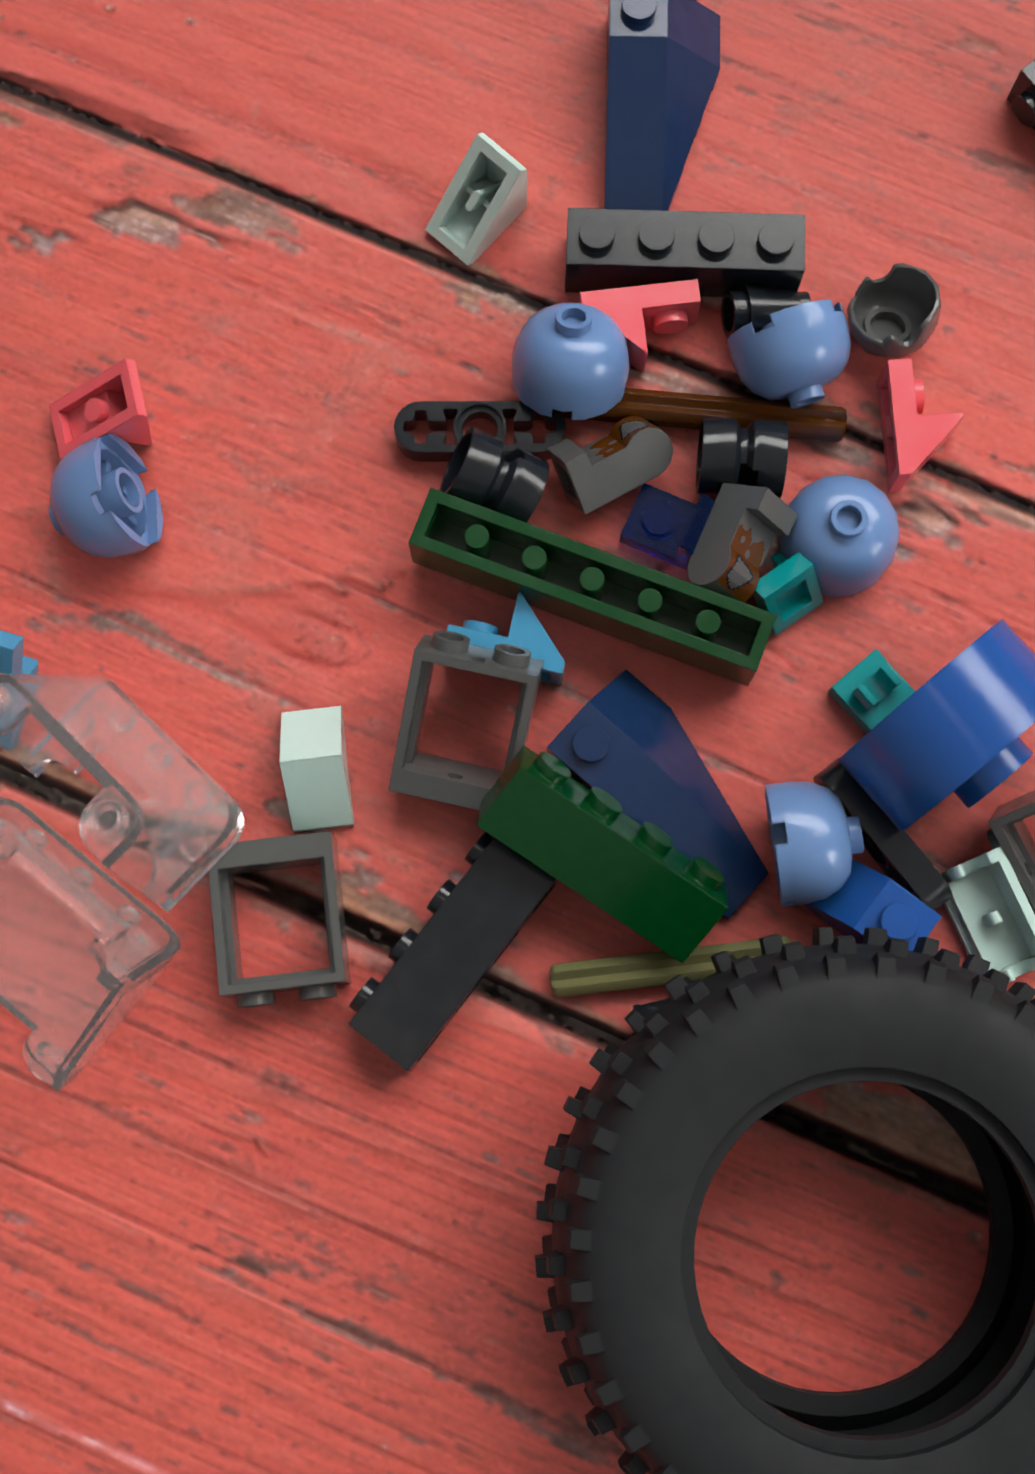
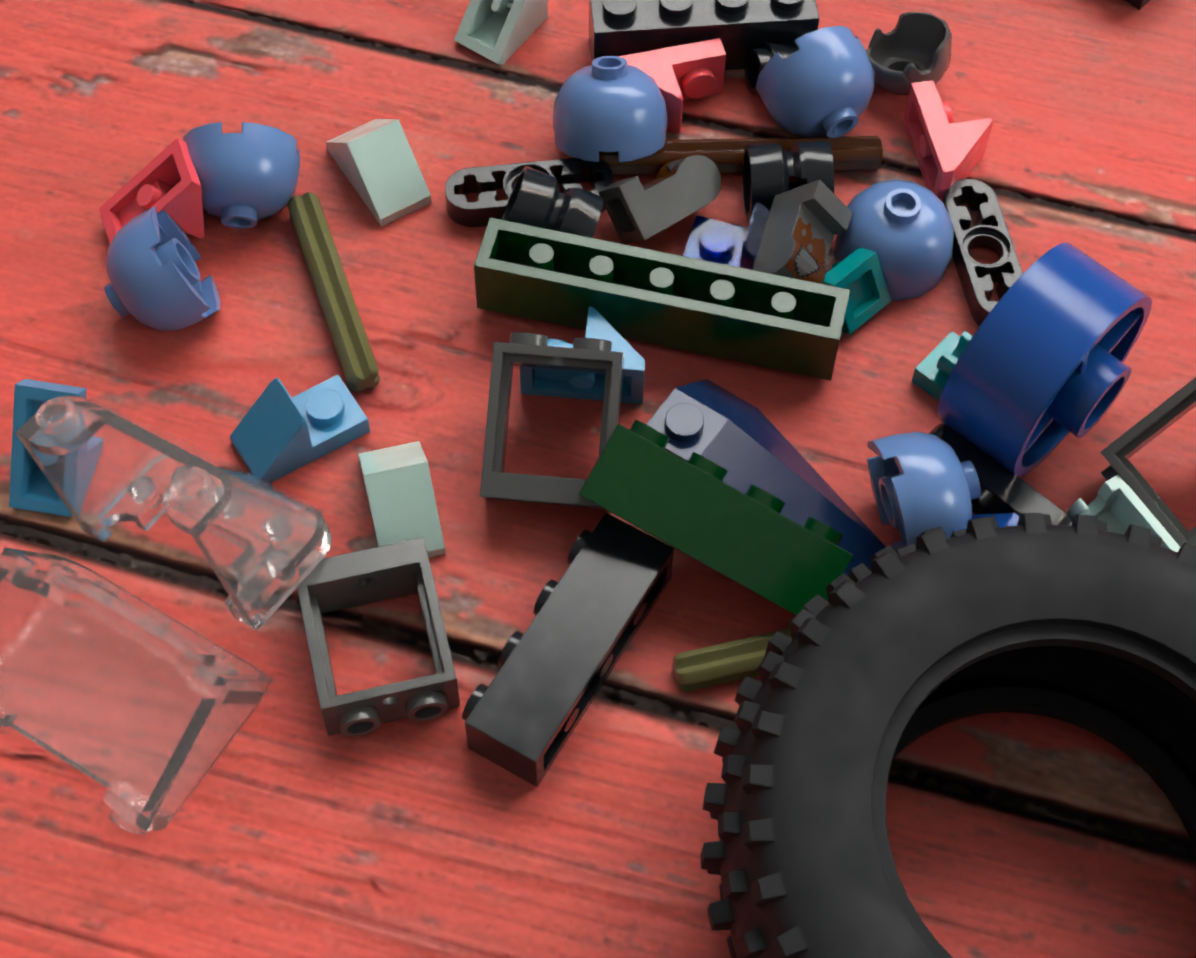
camera: 10 degrees left, 20 degrees down
(192, 392) = (244, 173): none -> medium blue cylinder
(226, 680) = (292, 432): none -> dark azure slope
(273, 526) = (333, 292): none -> olive axle
(332, 385) = (381, 169): none -> light aqua slope
(946, 601) = (988, 231): none -> black beam

